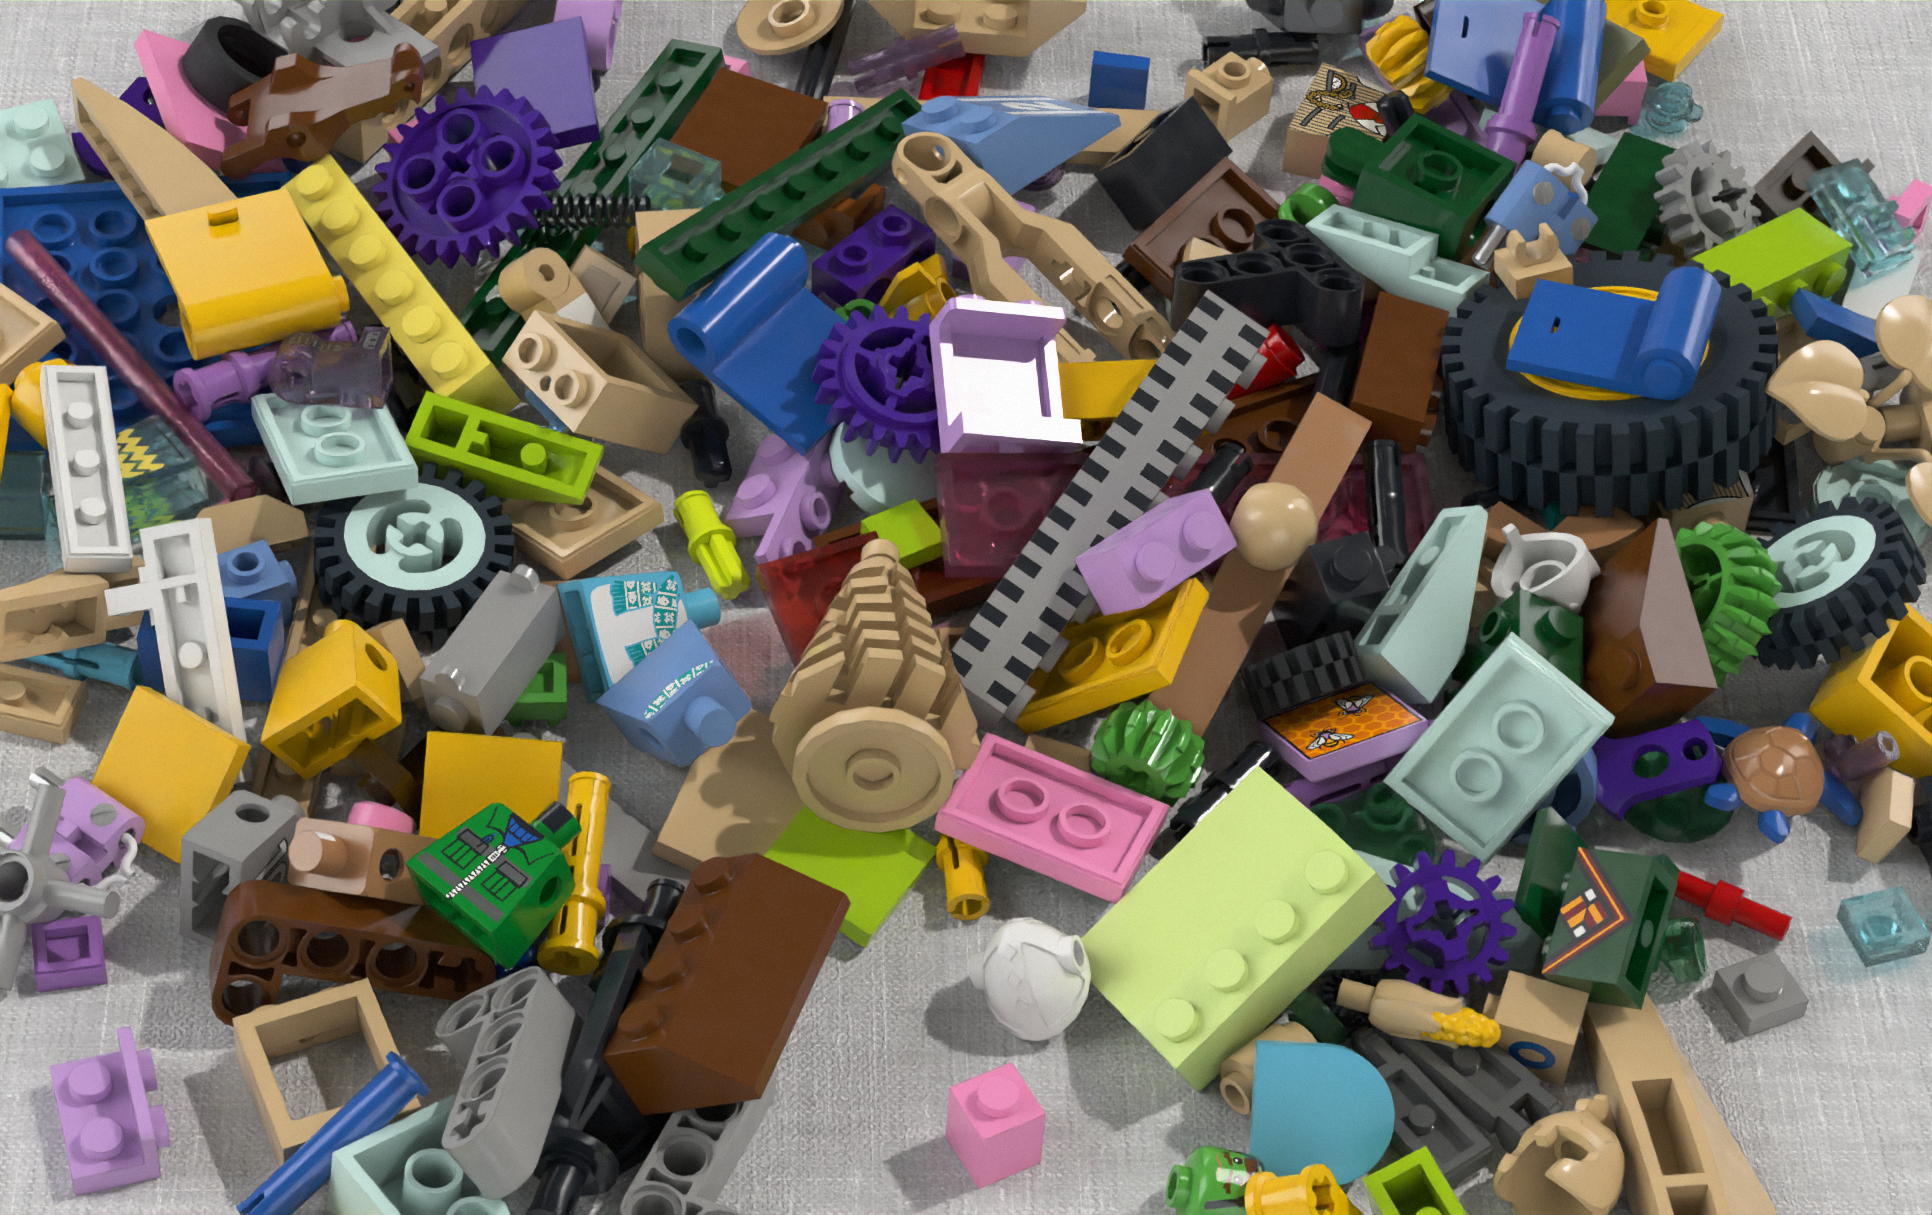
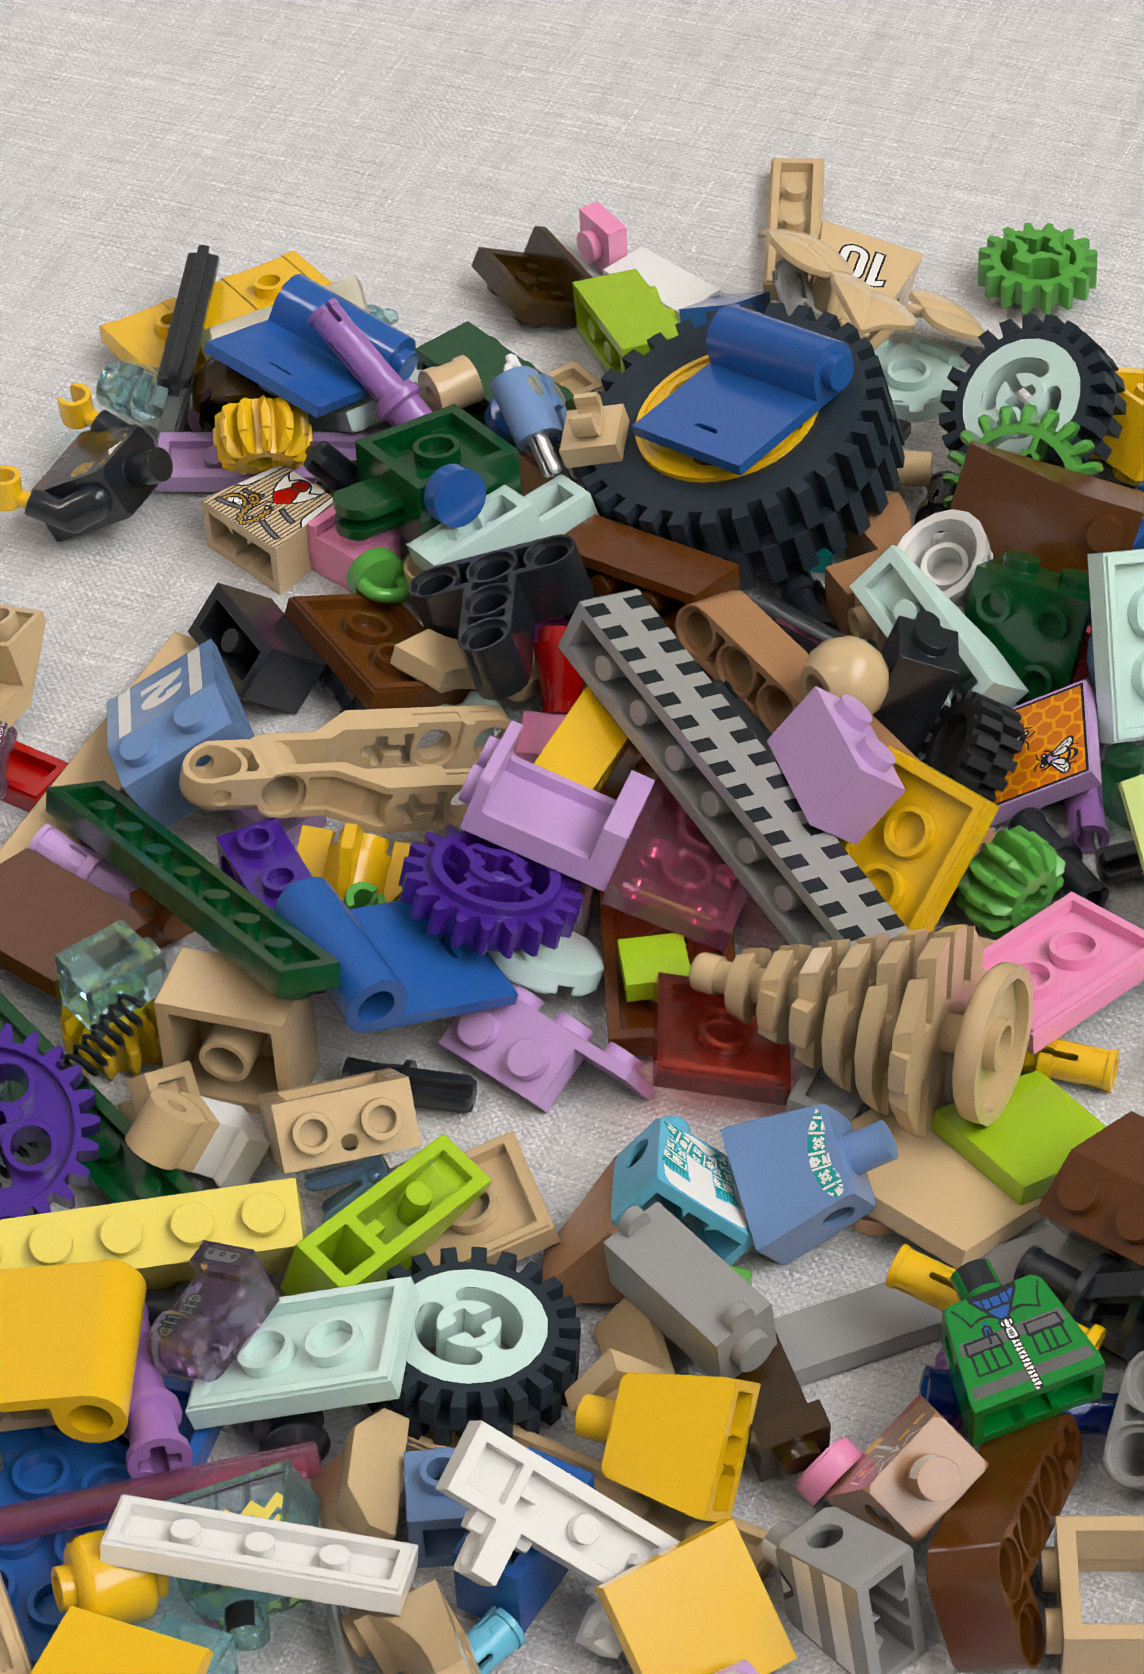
camera: 60 degrees left, 5 degrees down
(476, 770) = (854, 1358): yellow tile -> none
(711, 544) = (566, 1121): neon yellow axle -> none
(1118, 81) = (112, 650): blue tile -> none
(1239, 88) = (172, 572): tan brick -> none
(1270, 47) = (122, 552): black pin -> none
(1380, 198) = (455, 495): none -> blue tile
(1704, 198) = (539, 330): light grey gear -> none
(1862, 217) = (590, 250): clear light blue plate -> none

